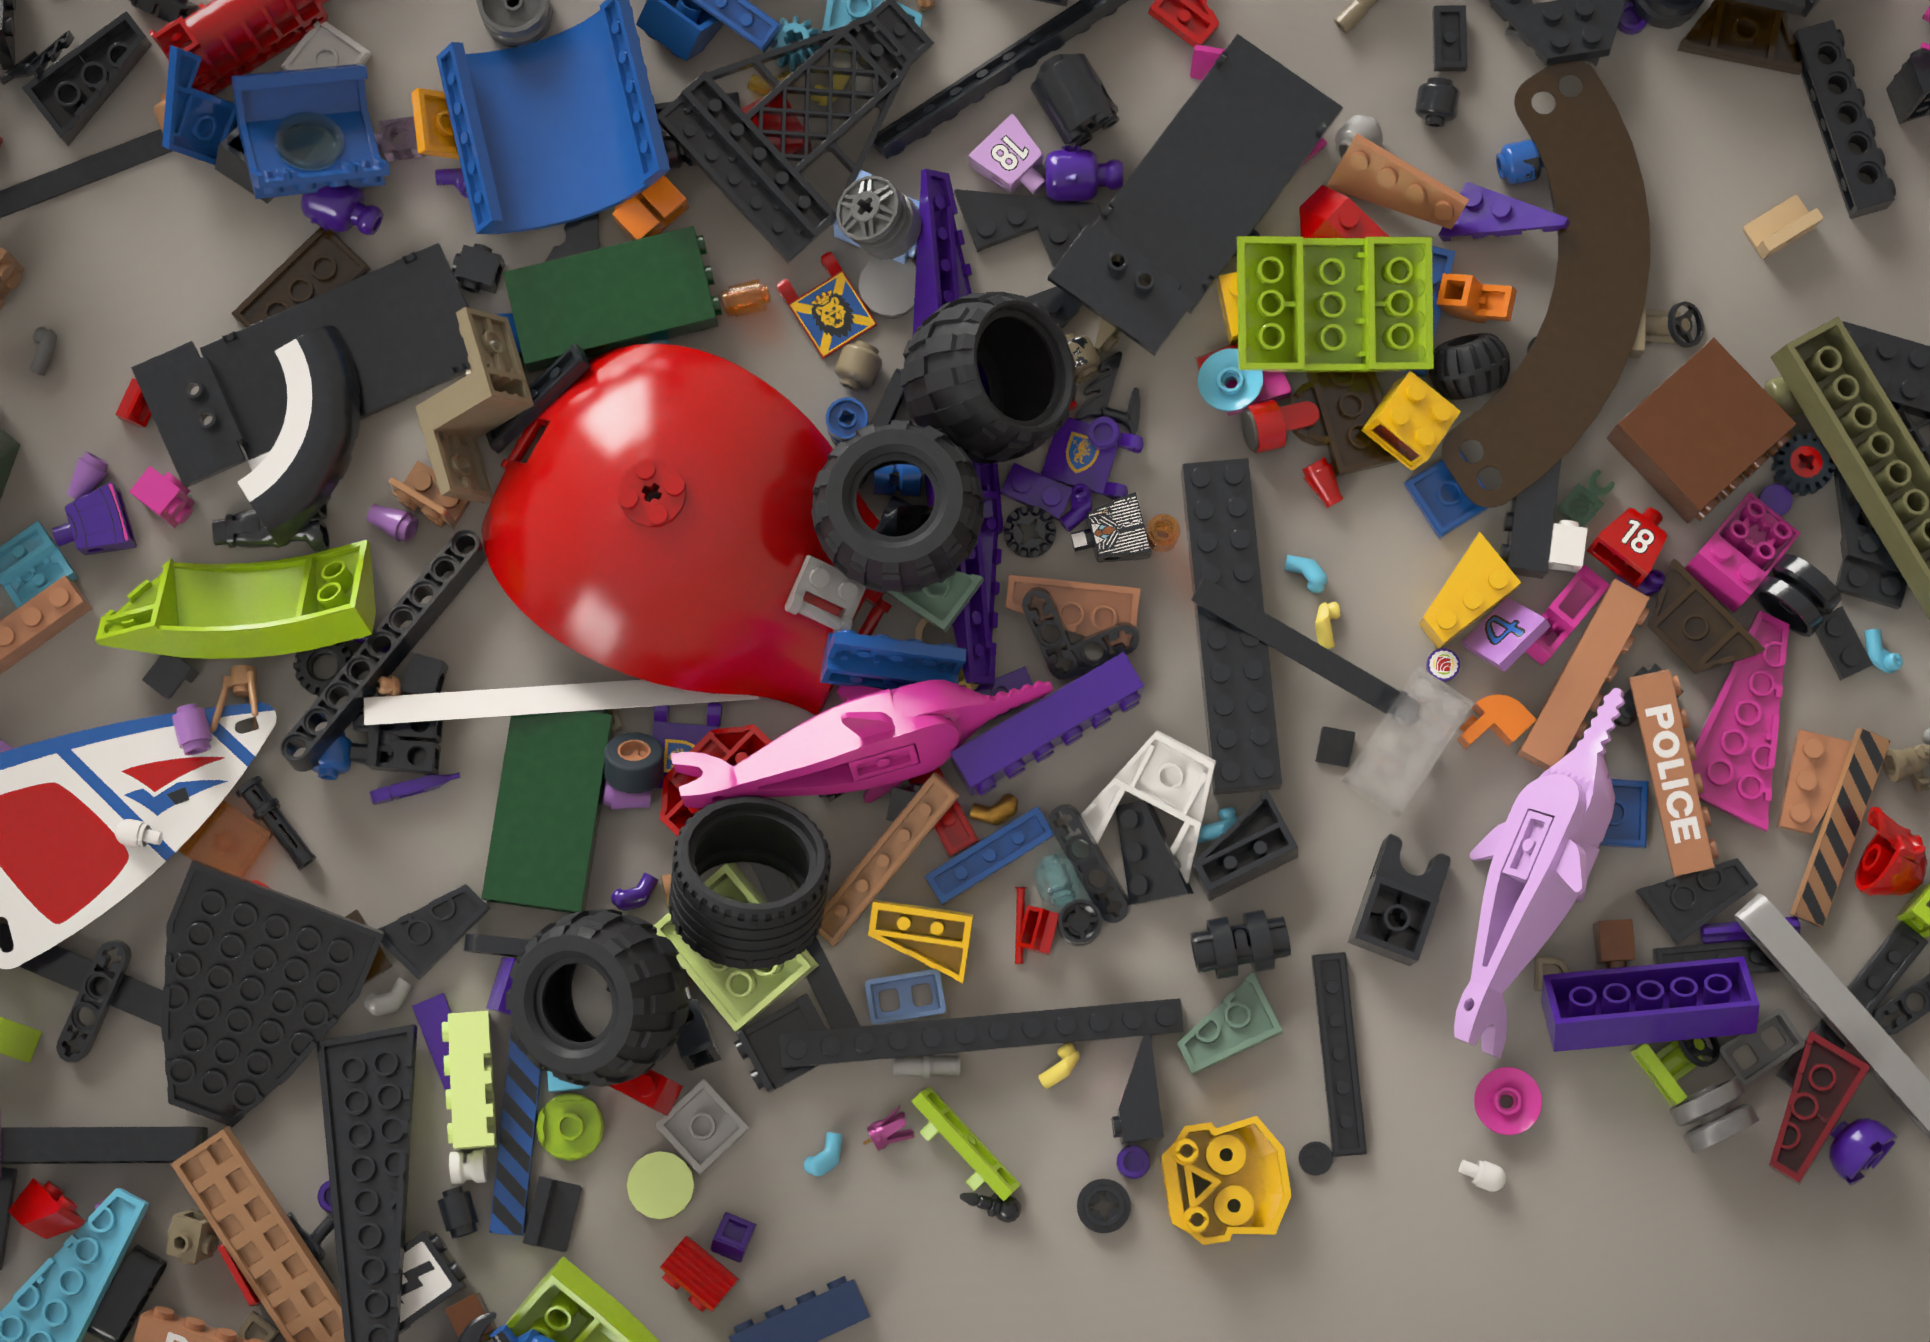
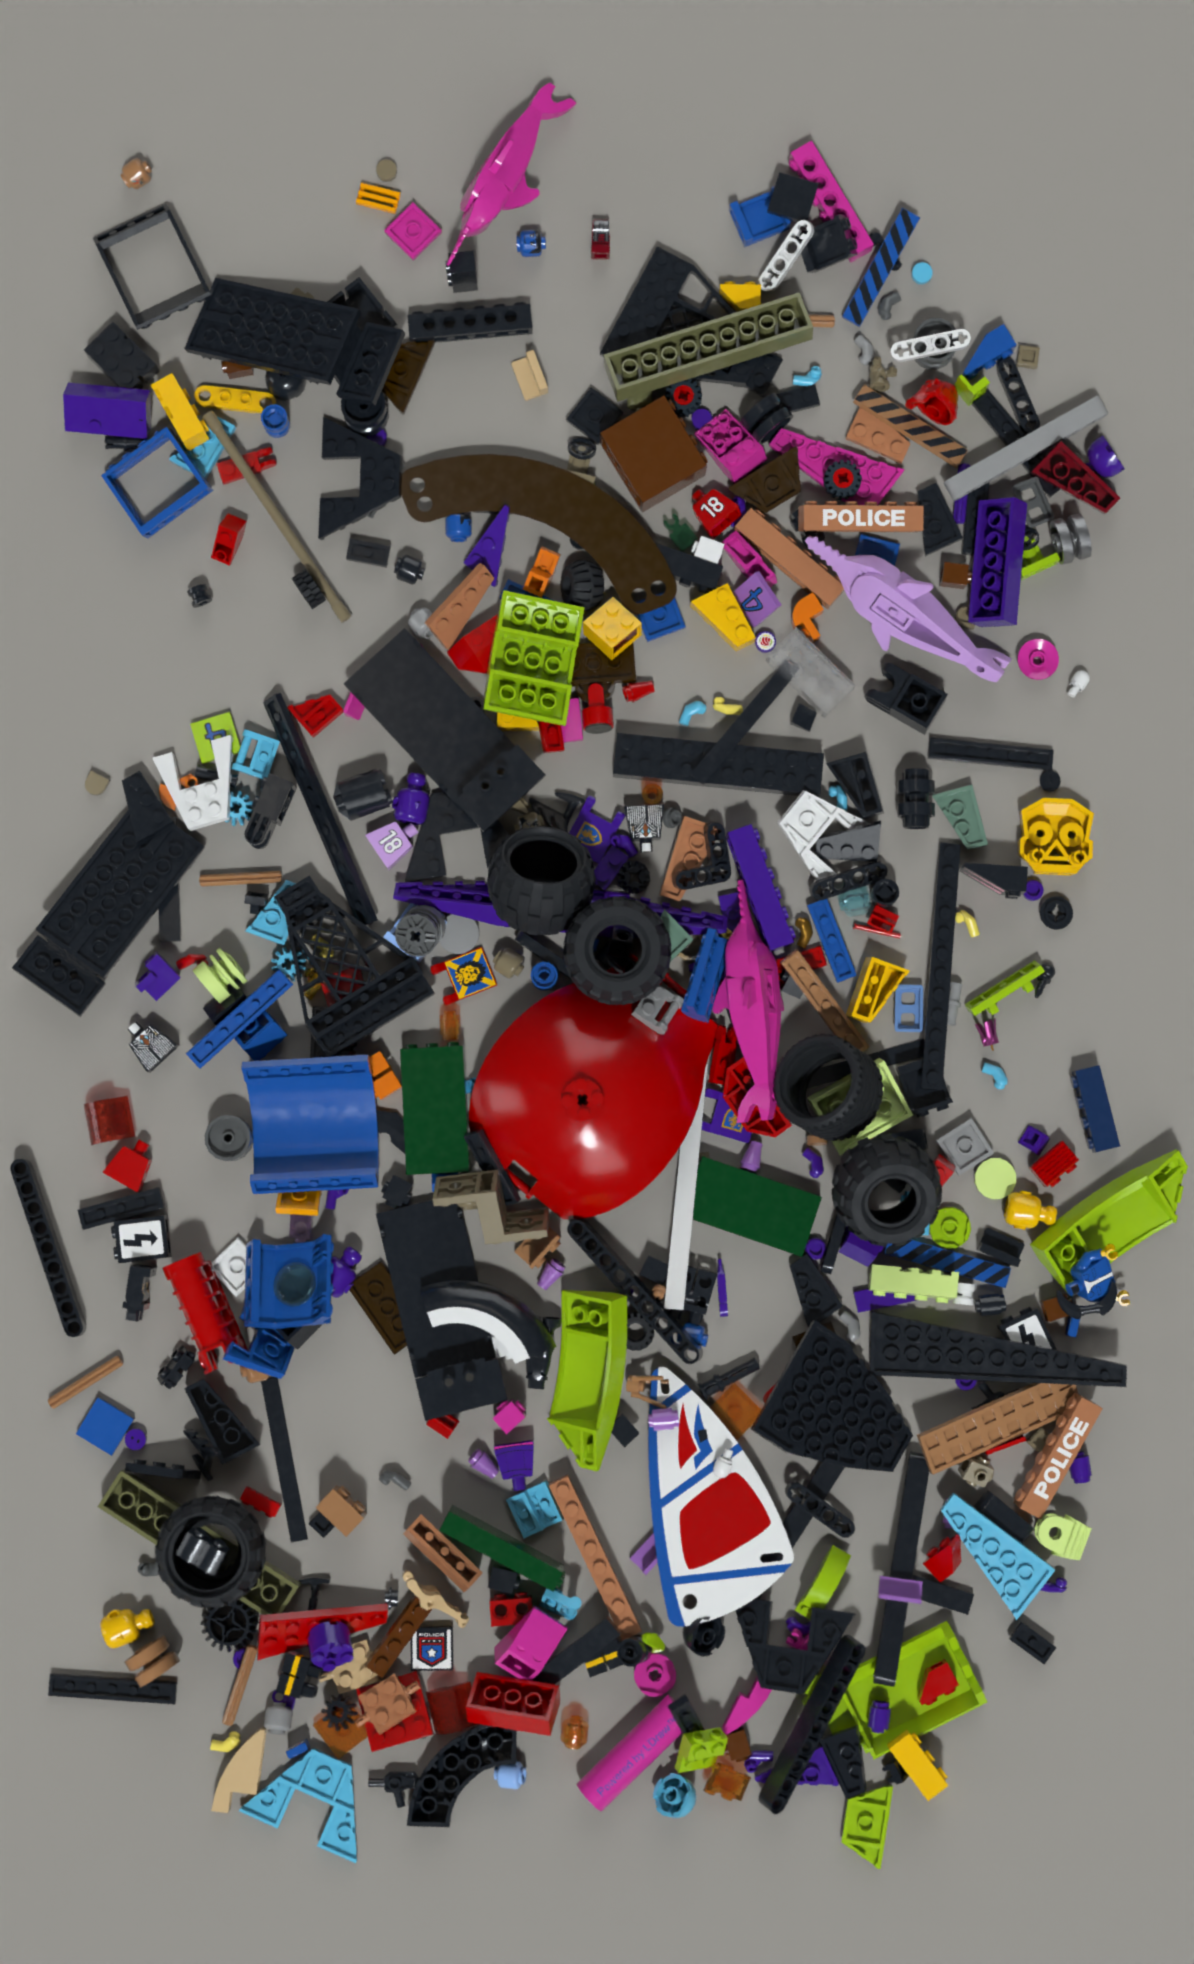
camera: 85 degrees left, 5 degrees up
(501, 921) = (815, 1248): none -> dark purple tile
(615, 1240) = (1026, 1210): none -> yellow piece
(634, 763) = (735, 1147): black wheel -> none
(772, 718) = (723, 1054): none -> red hinge
(1103, 433) = (581, 819): dark purple tile -> none
(1134, 571) = (672, 817): none -> dark grey plate
(1217, 372) = (561, 745): medium azure dish -> none
(1721, 743) = (844, 486): none -> black wheel
(1745, 333) = (594, 415): none -> black tile

